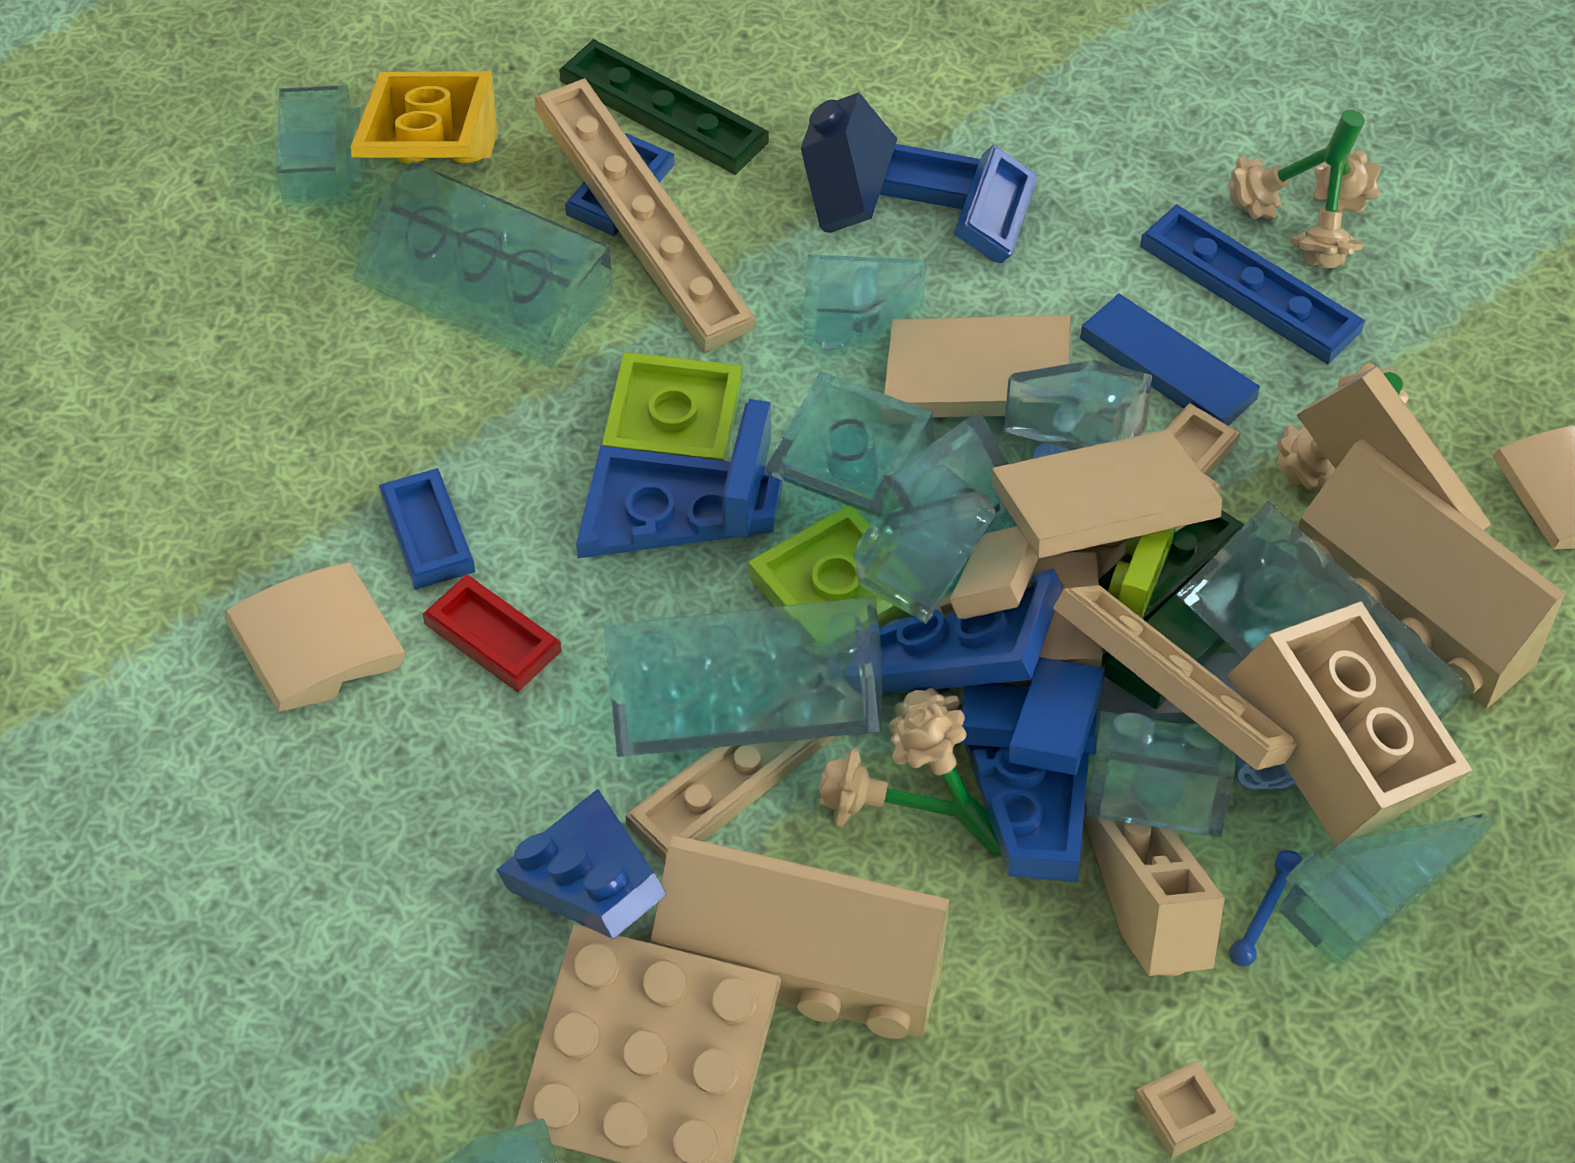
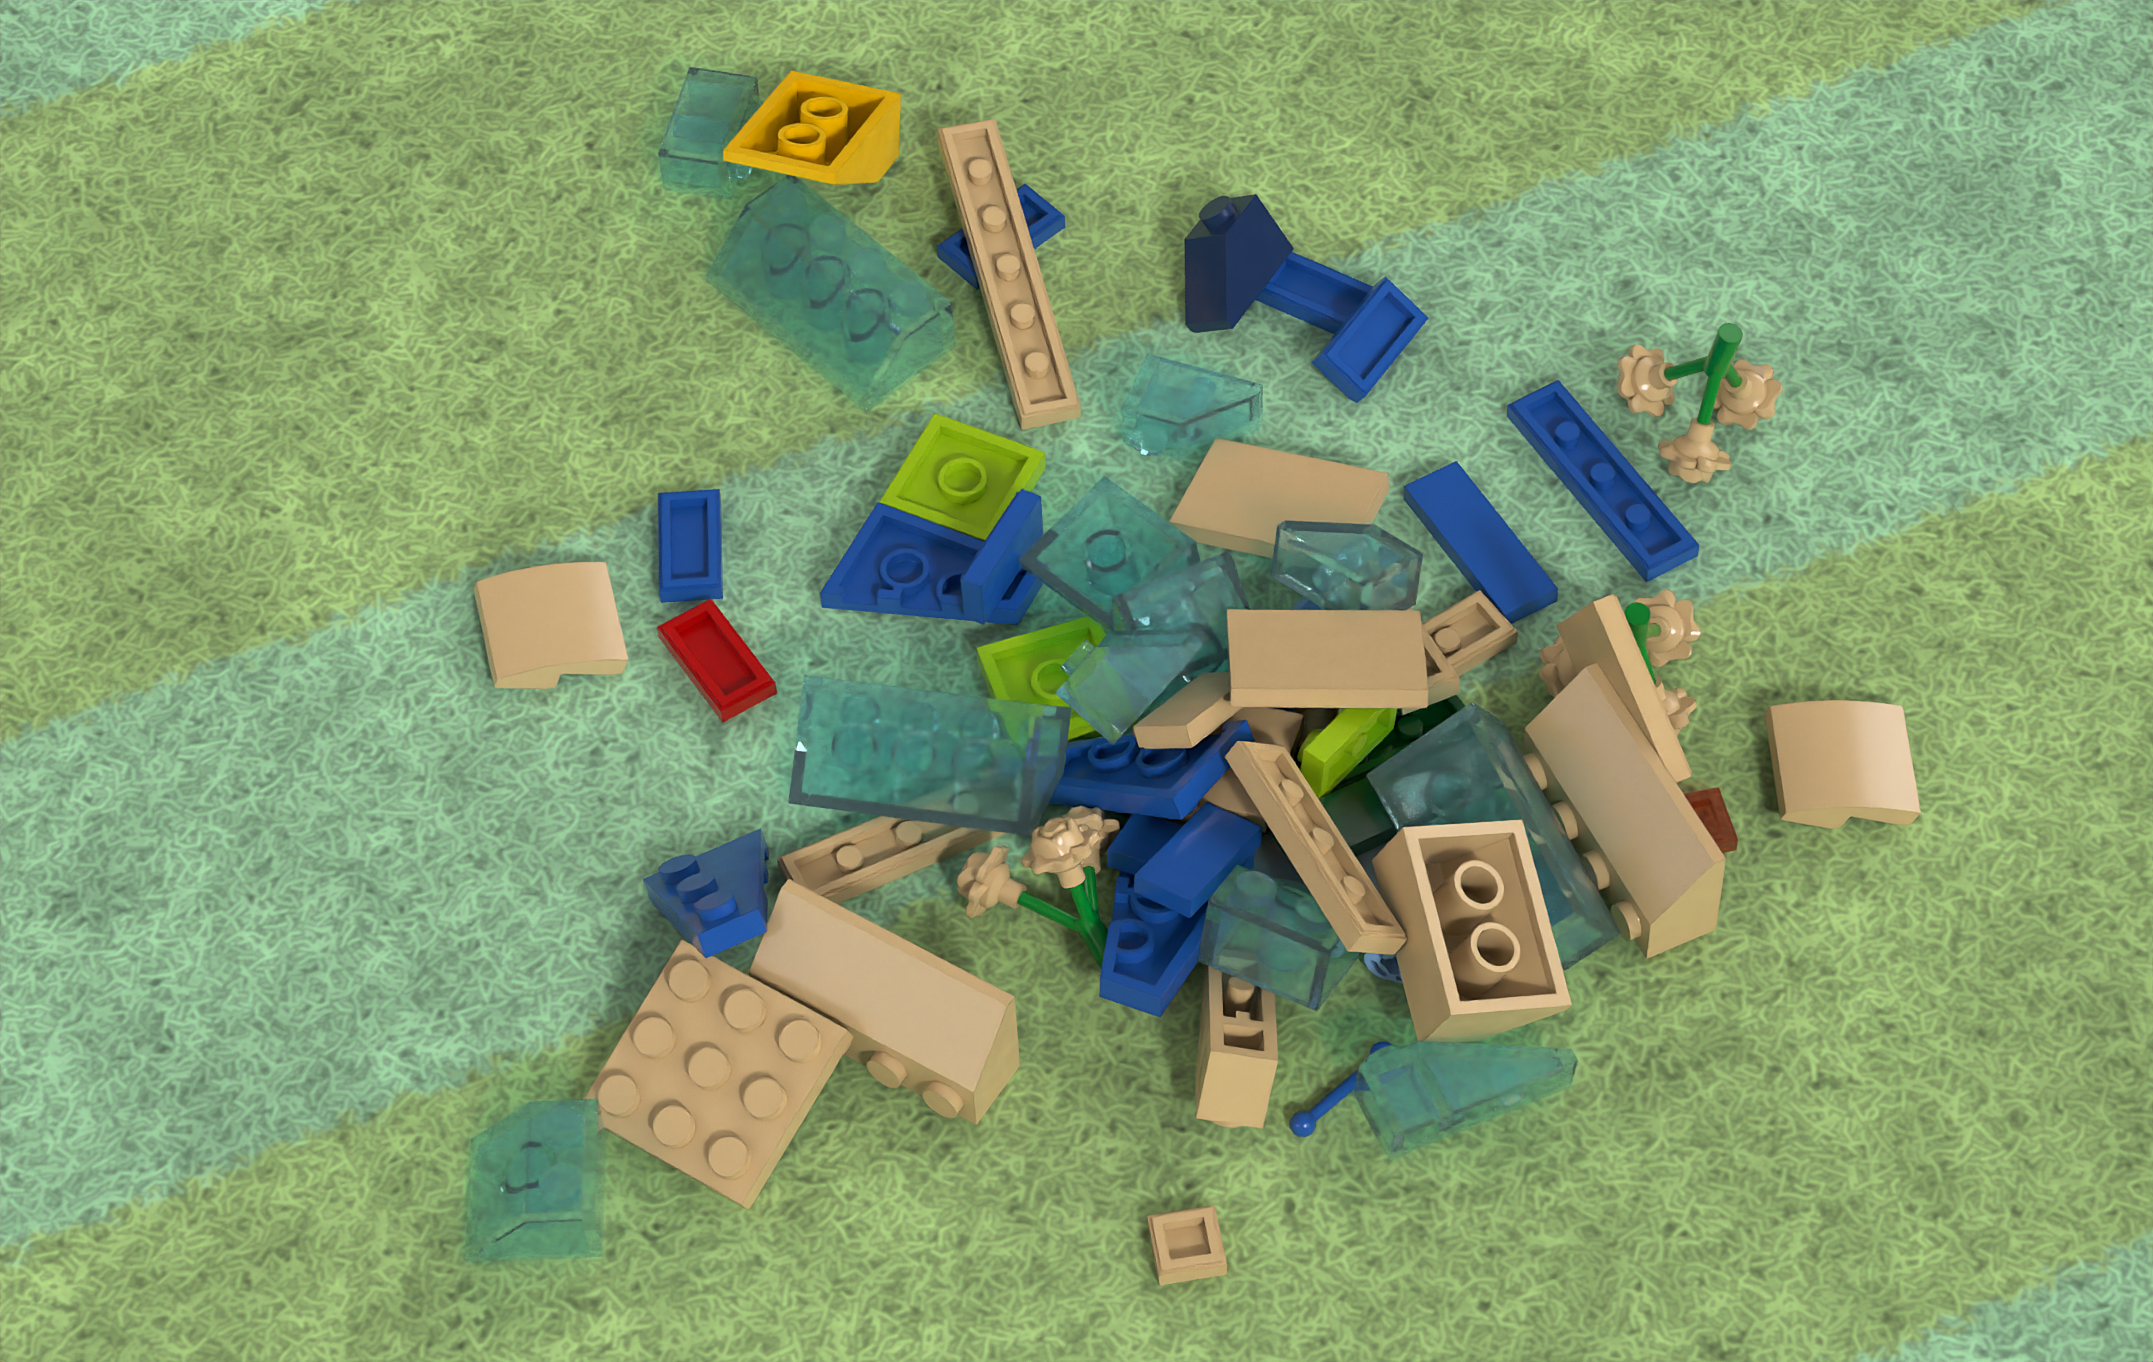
camera: 20 degrees right, 0 degrees up
(666, 107) = (1076, 162): dark green tile -> none

